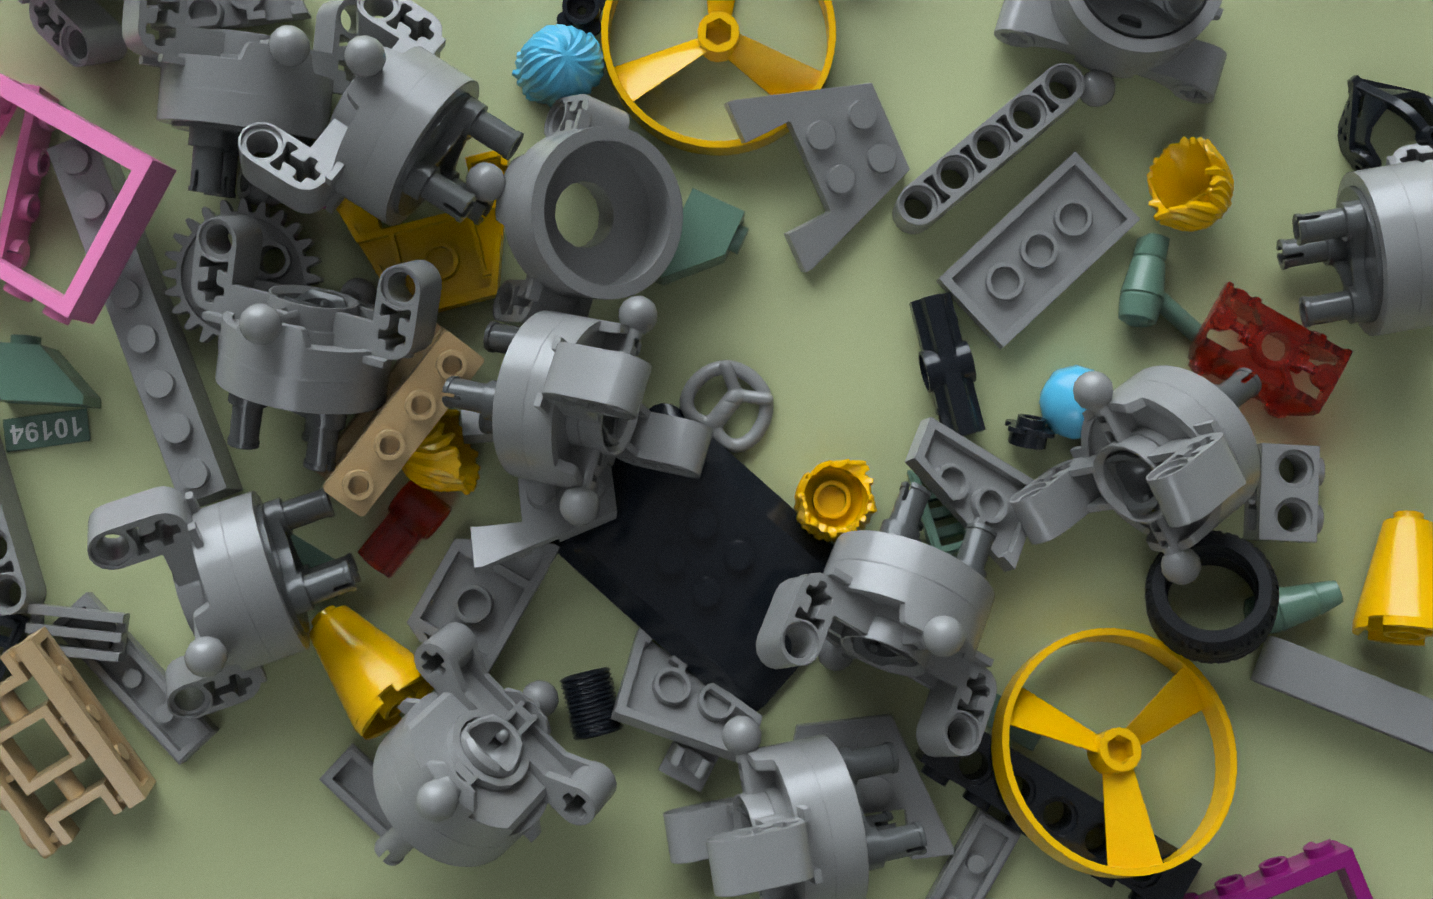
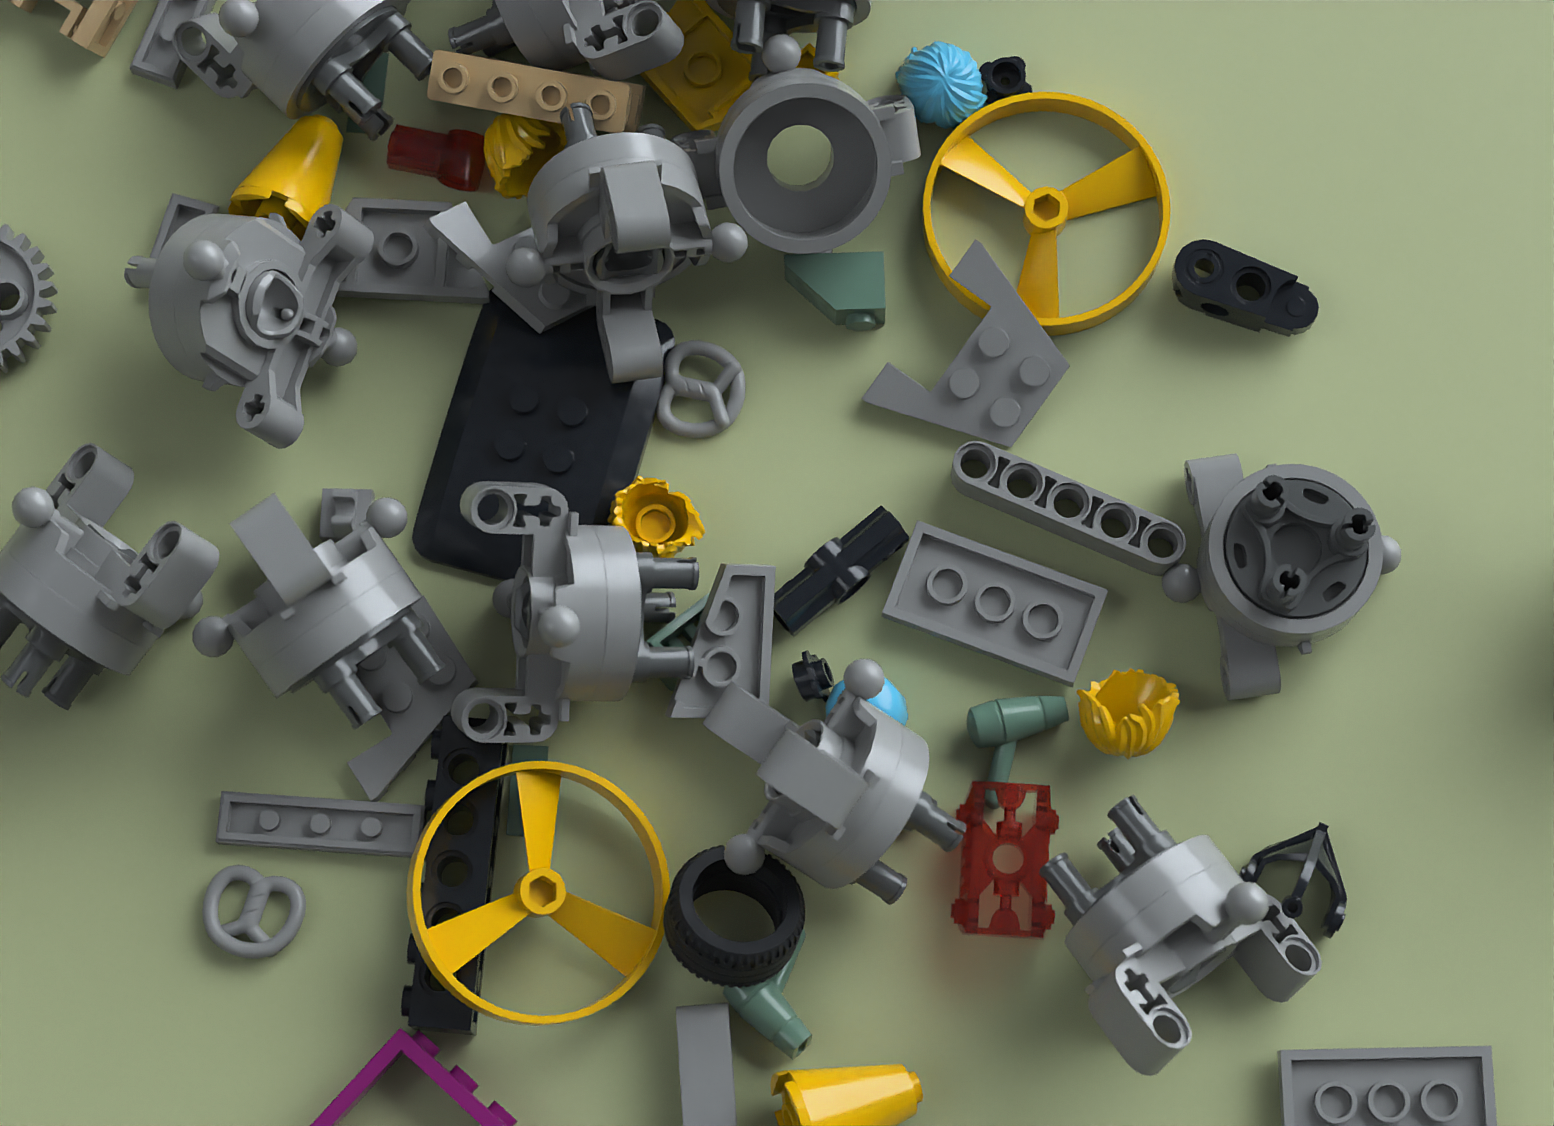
camera: 70 degrees right, 10 degrees down
(590, 703) = (356, 396): black piece -> none
(673, 703) = (394, 461): light grey wing -> none
(1298, 495) = (868, 937): light grey brick -> none

